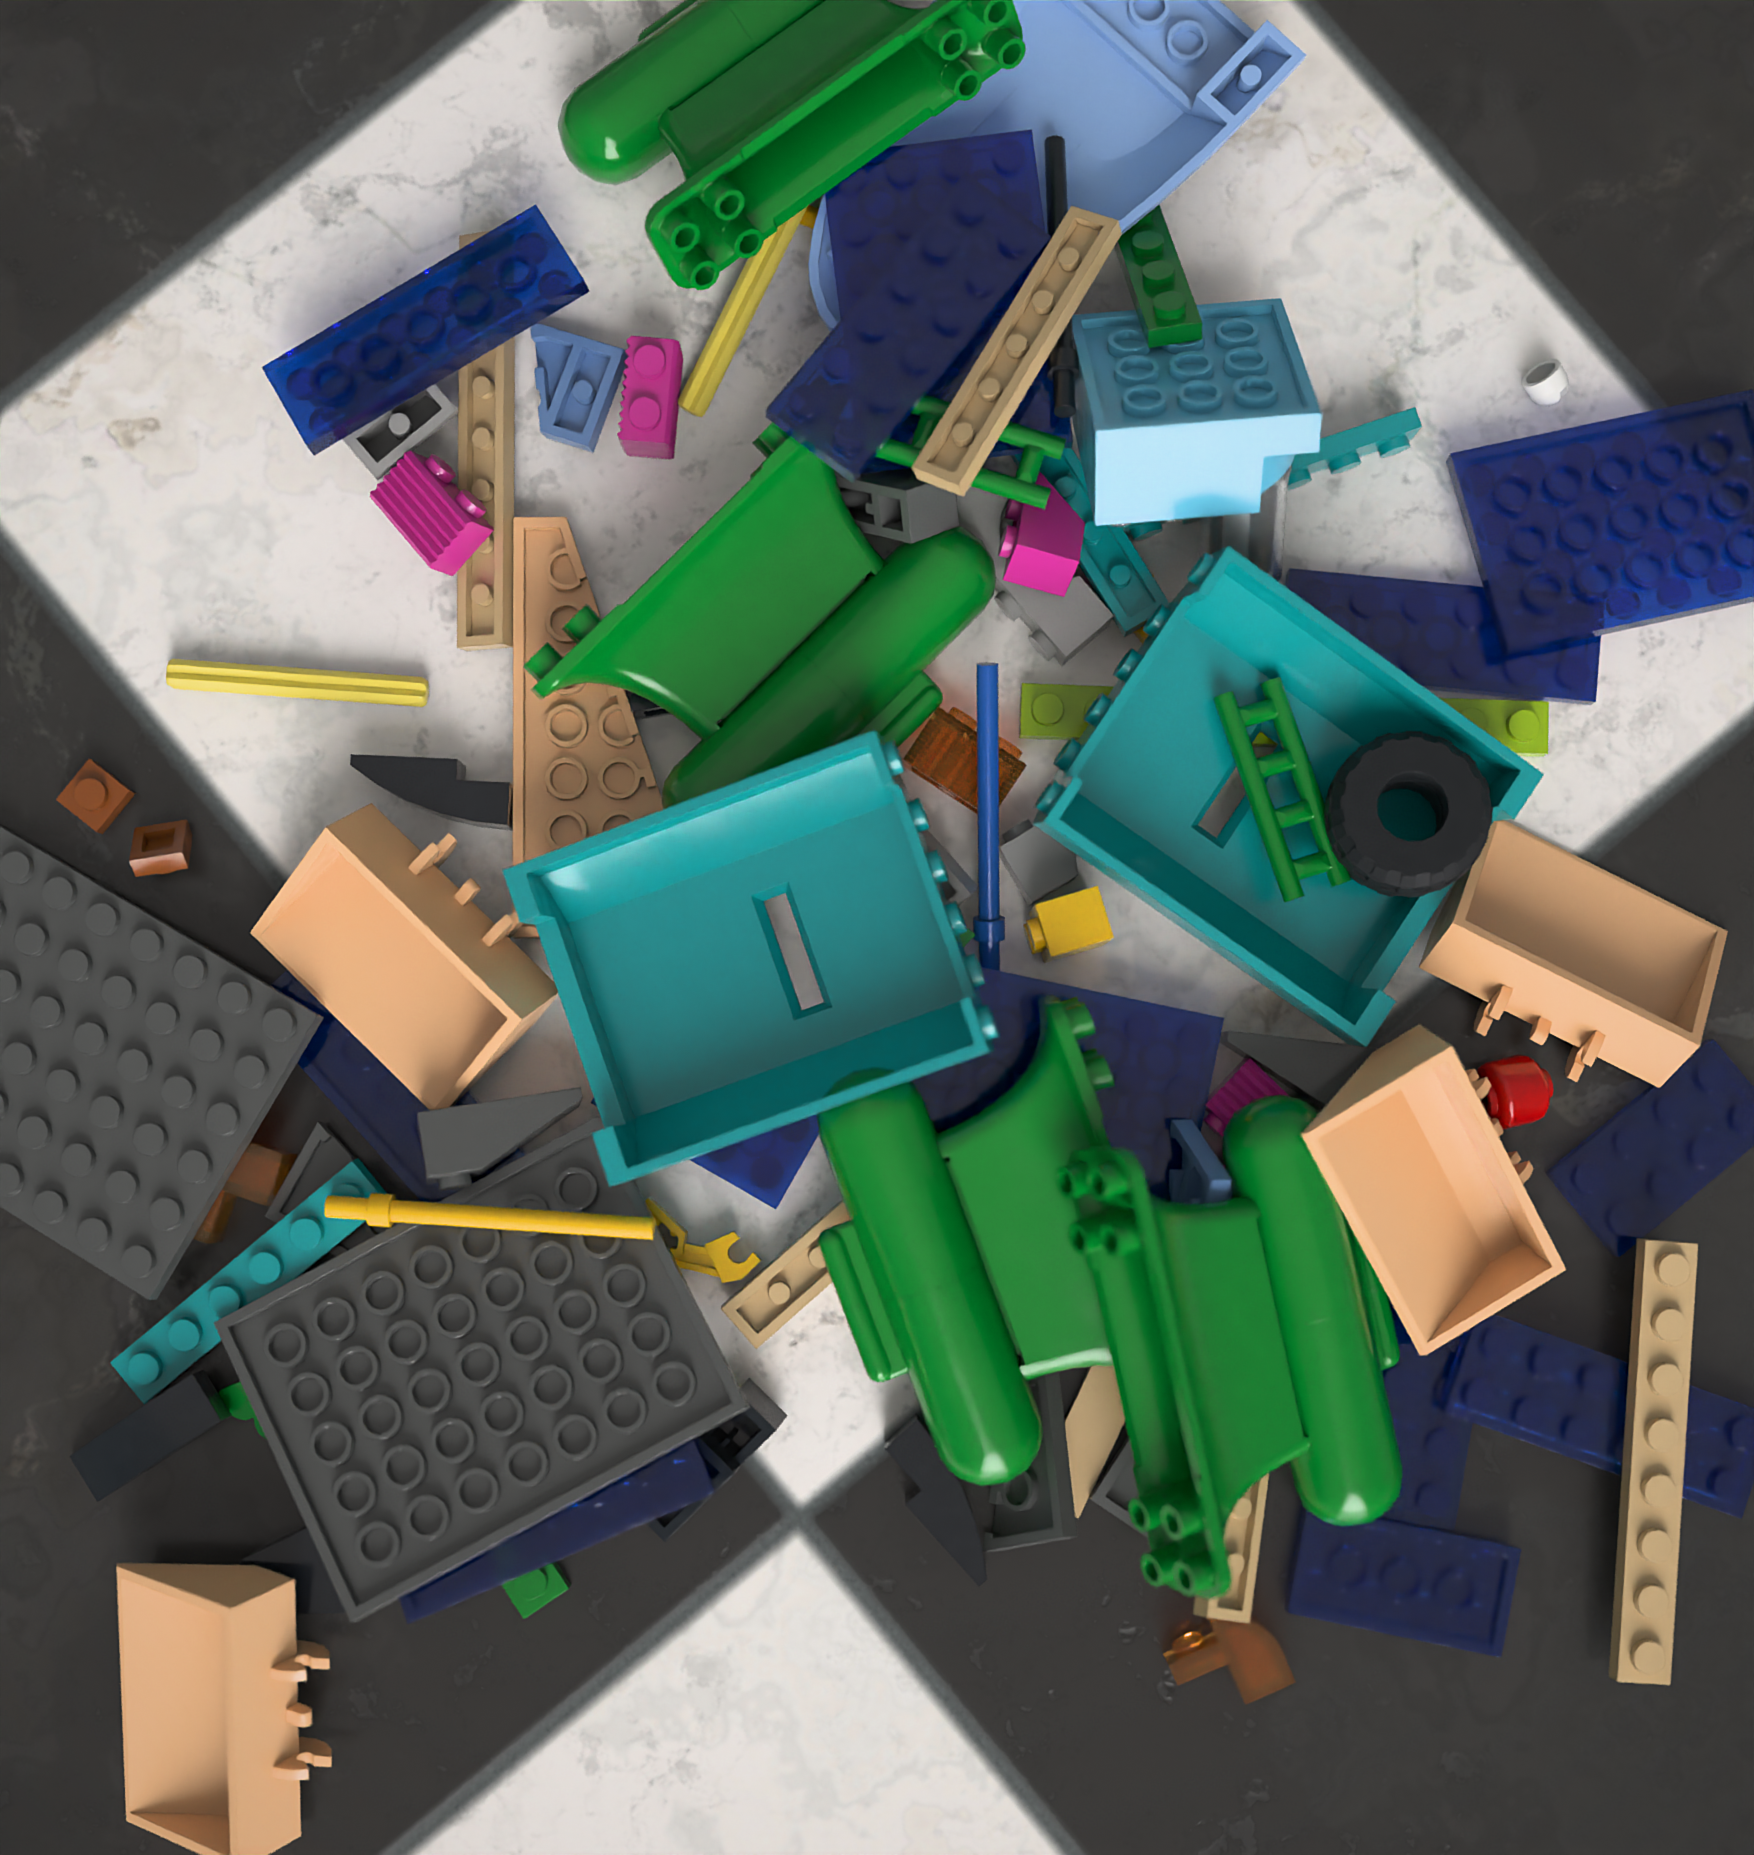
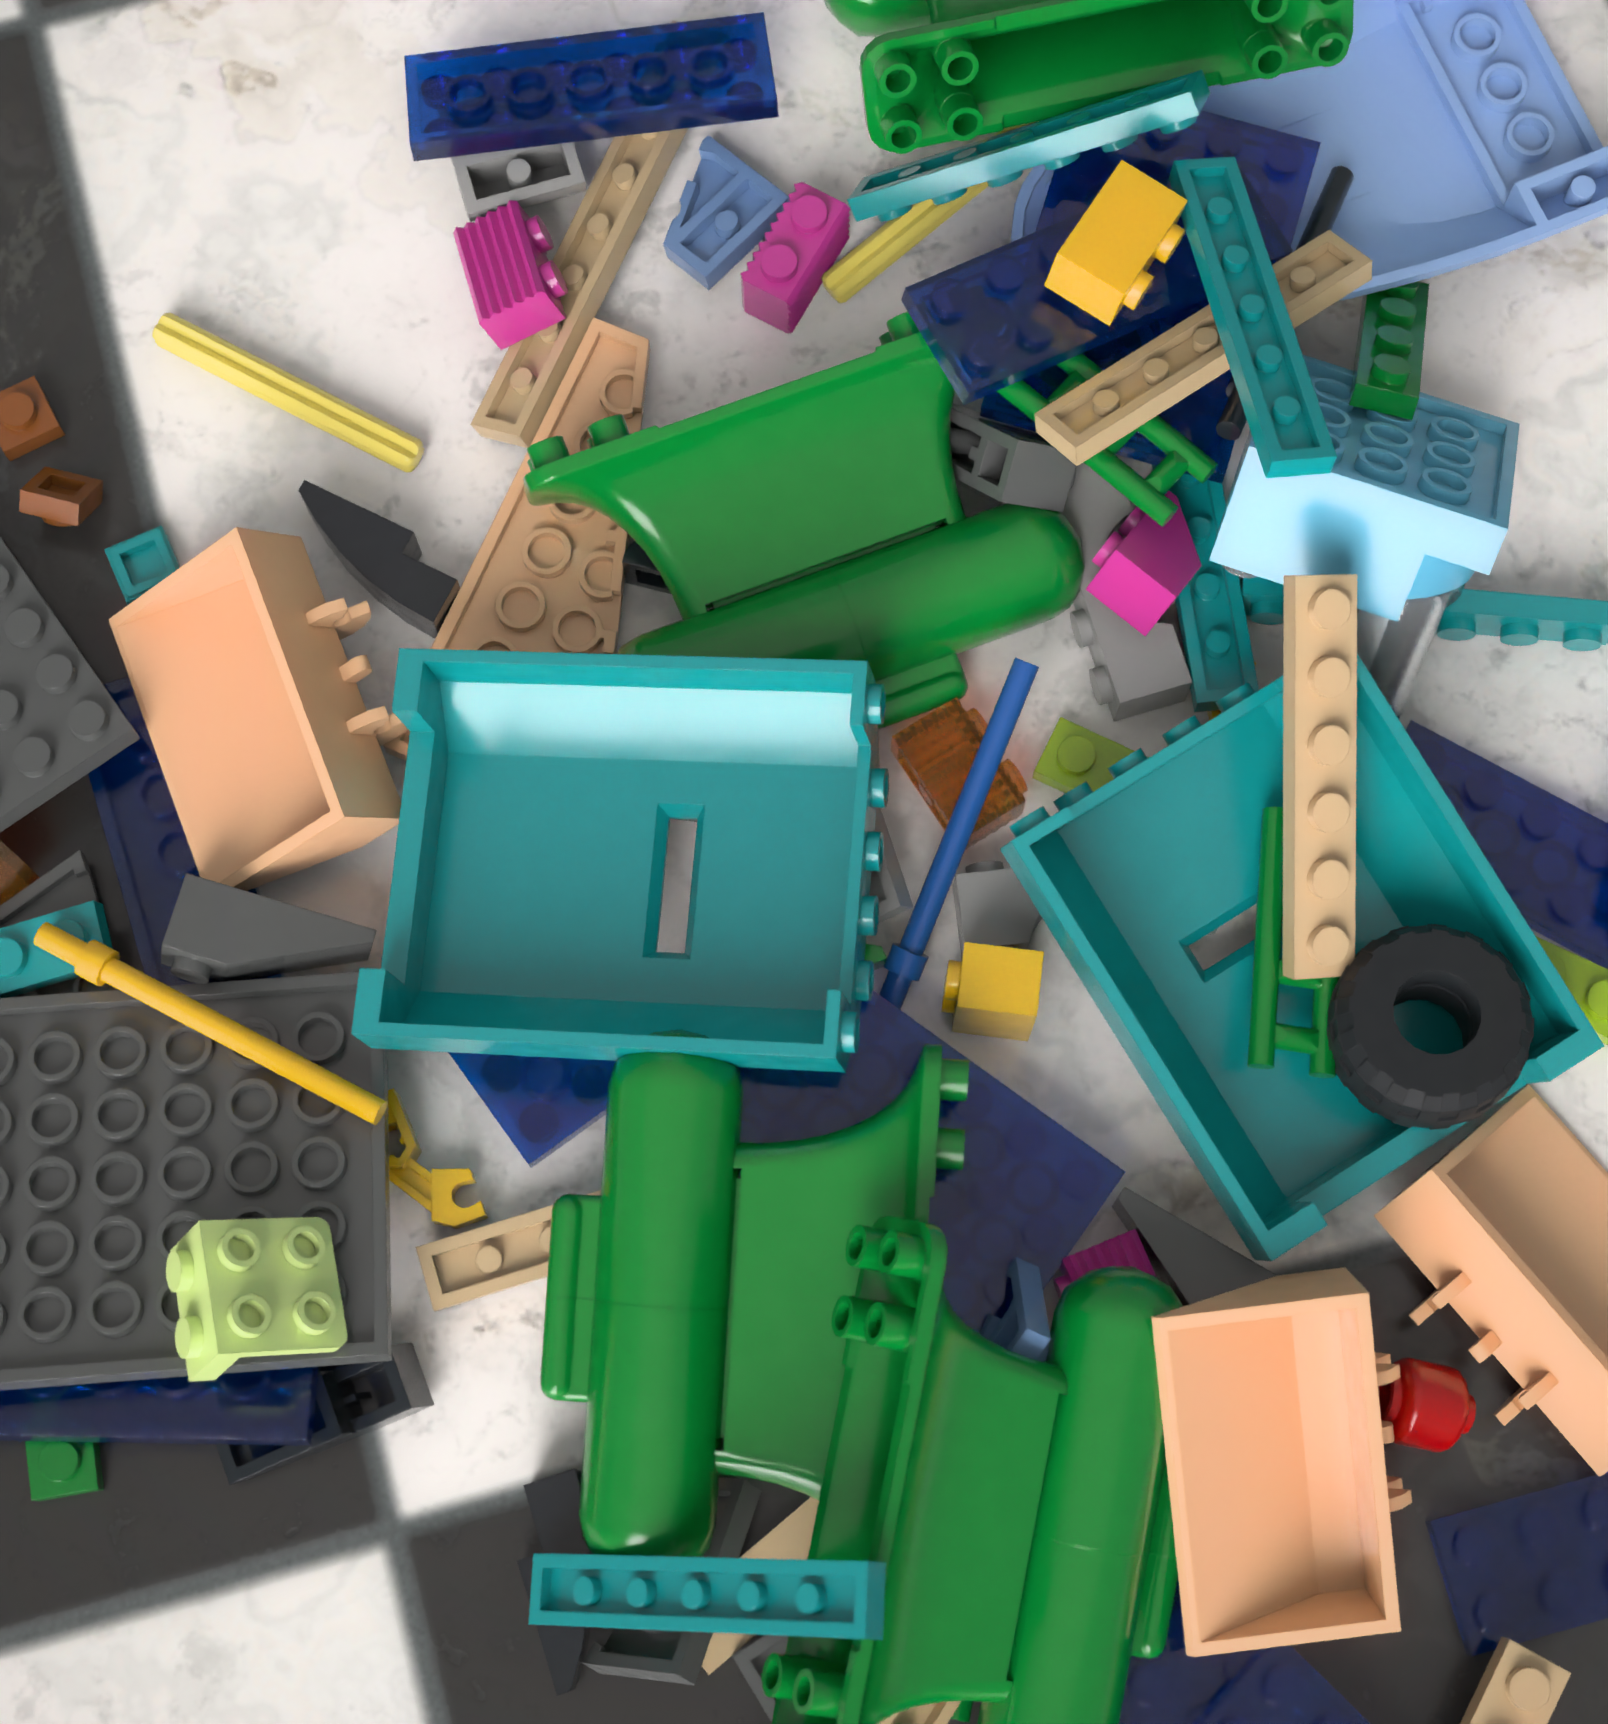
camera: 25 degrees right, 10 degrees down
(255, 873) = (142, 562): none -> teal tile
(629, 1408) = (254, 1292): none -> yellowish green bracket
(817, 227) = (1049, 142): none -> teal plate
(918, 301) = (1116, 244): none -> yellow brick
(1051, 320) = (1252, 319): none -> teal plate
(1069, 1480) = (710, 1594): none -> teal plate
(1251, 660) = (1319, 774): none -> tan plate

